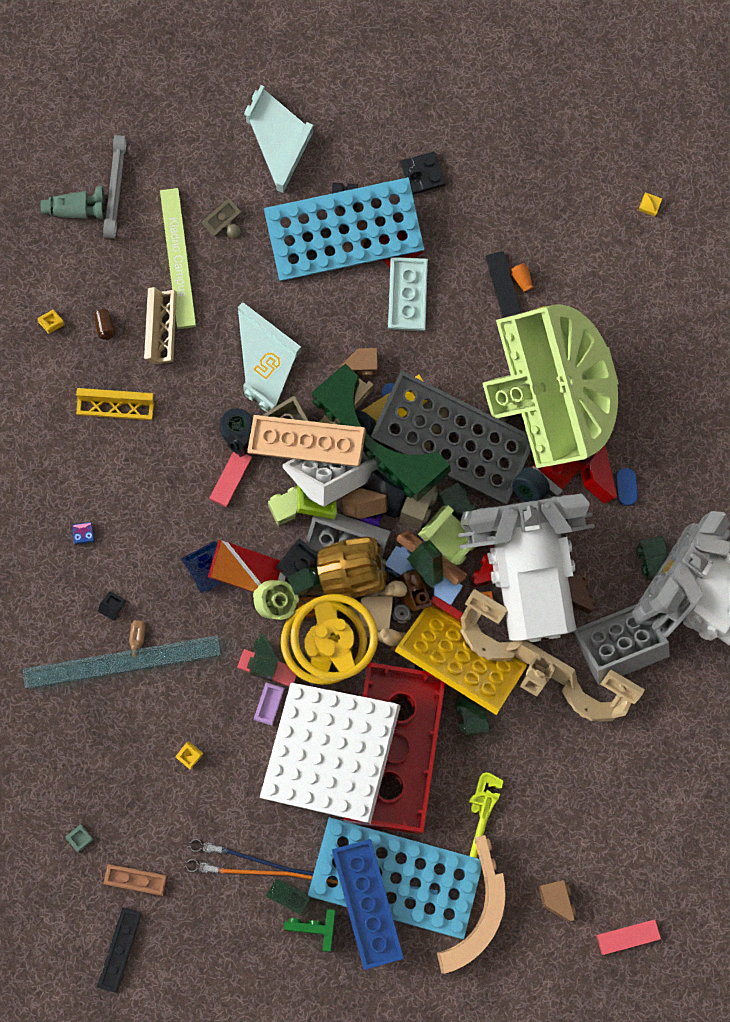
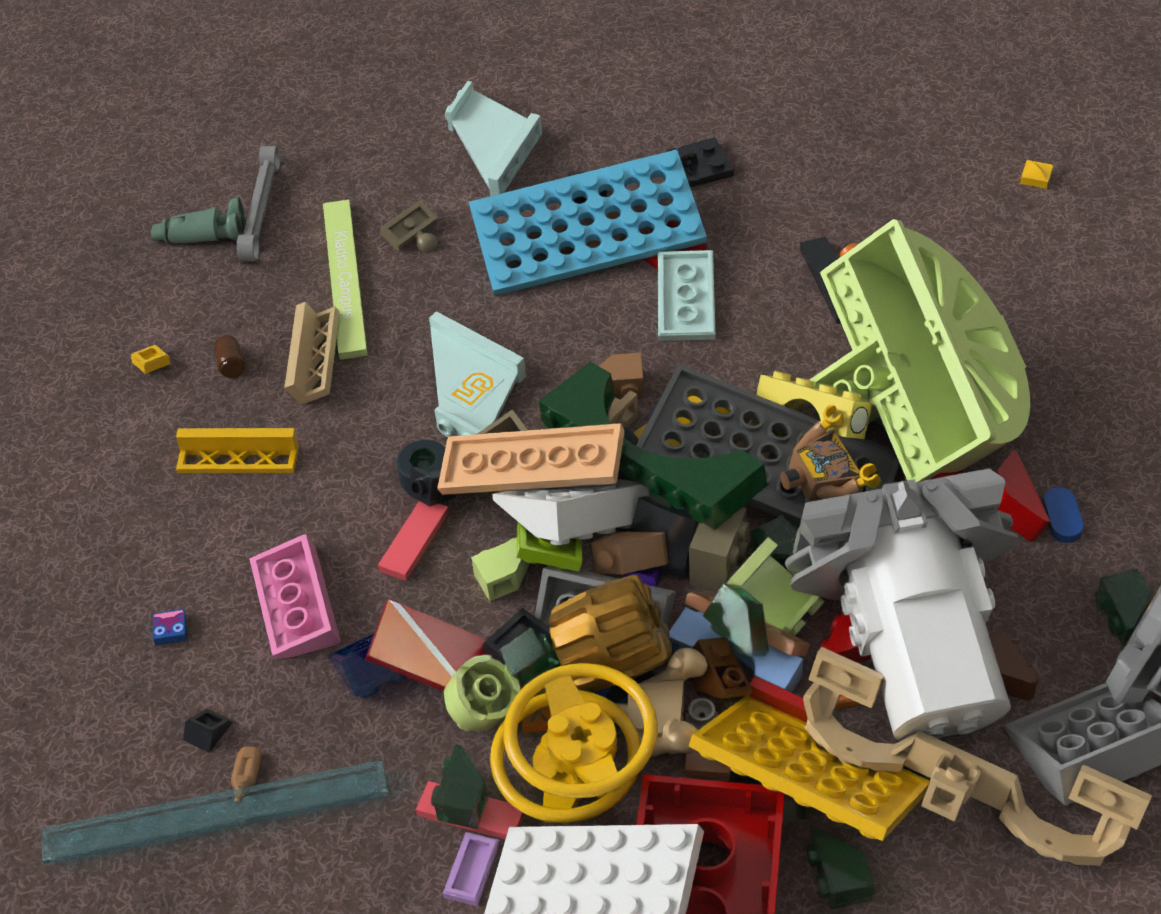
camera: 10 degrees right, 25 degrees down
(158, 518) = (294, 599): none -> bright pink slope
(486, 453) = (823, 464): none -> torso
(500, 415) = (797, 393): none -> light yellow arch

